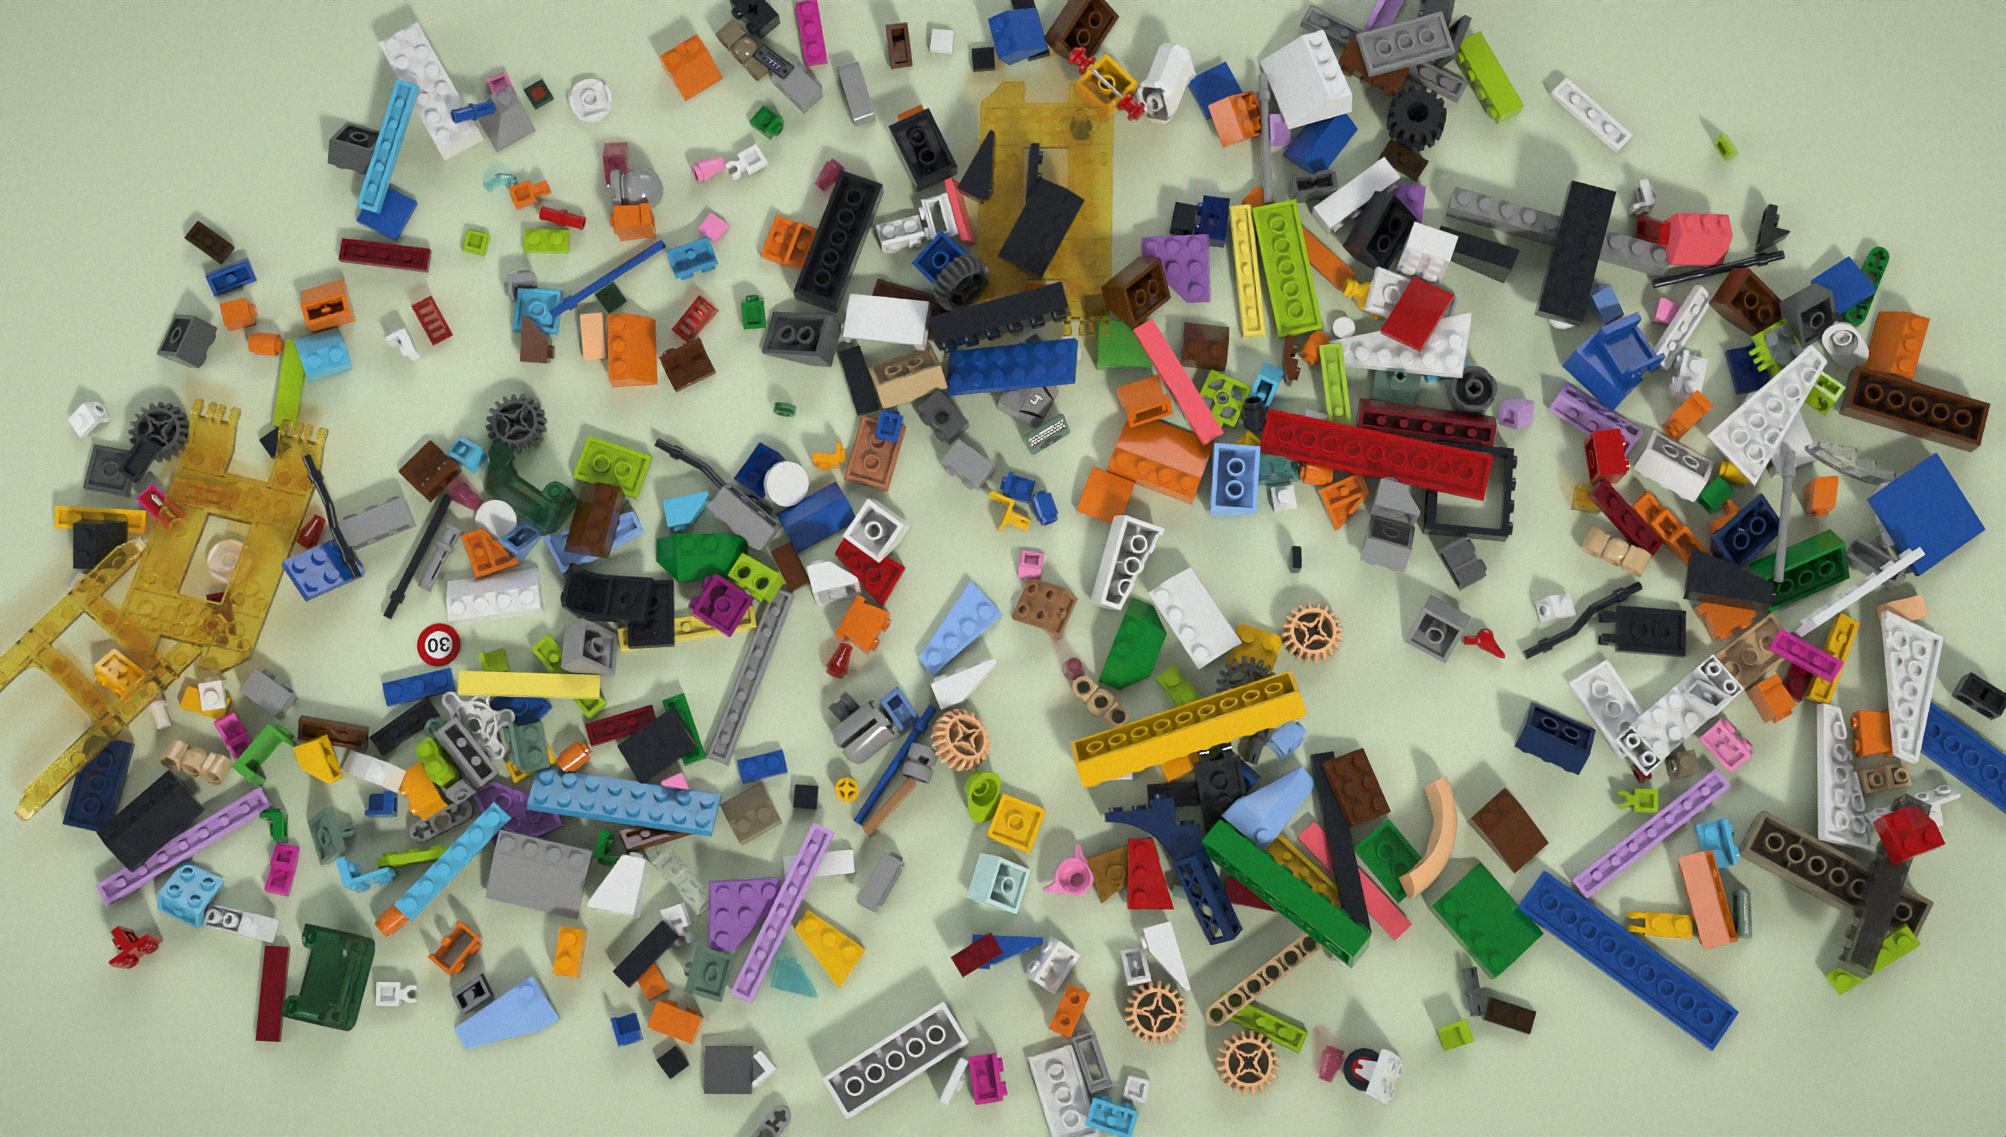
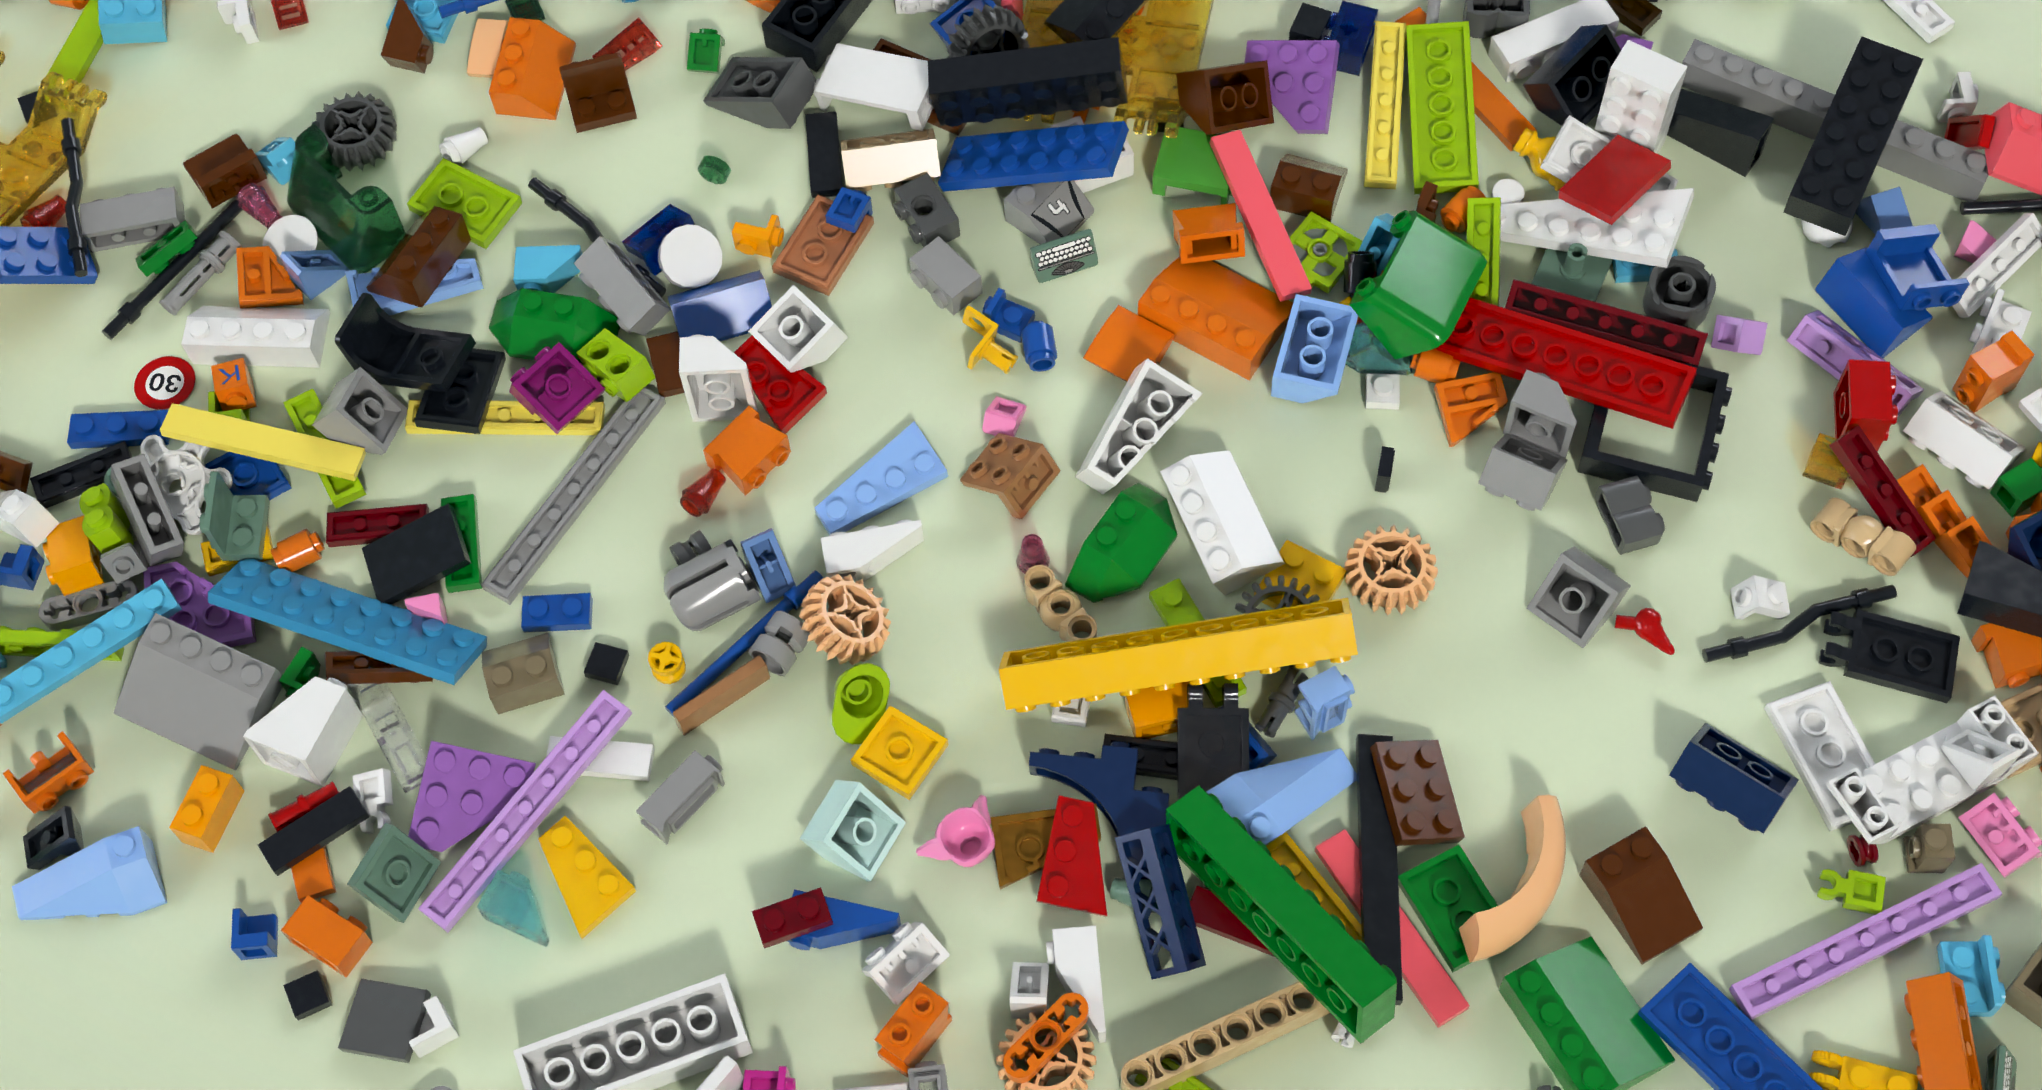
camera: 15 degrees right, 15 degrees down
(409, 544) = (158, 255): none -> green plate
(492, 643) = (233, 385): none -> orange brick
(597, 422) = (463, 145): none -> white cone
(633, 937) = (303, 805): none -> red pin
(1140, 1014) = (1019, 1049): none -> orange beam
(1302, 425) = (1421, 287): none -> green windscreen

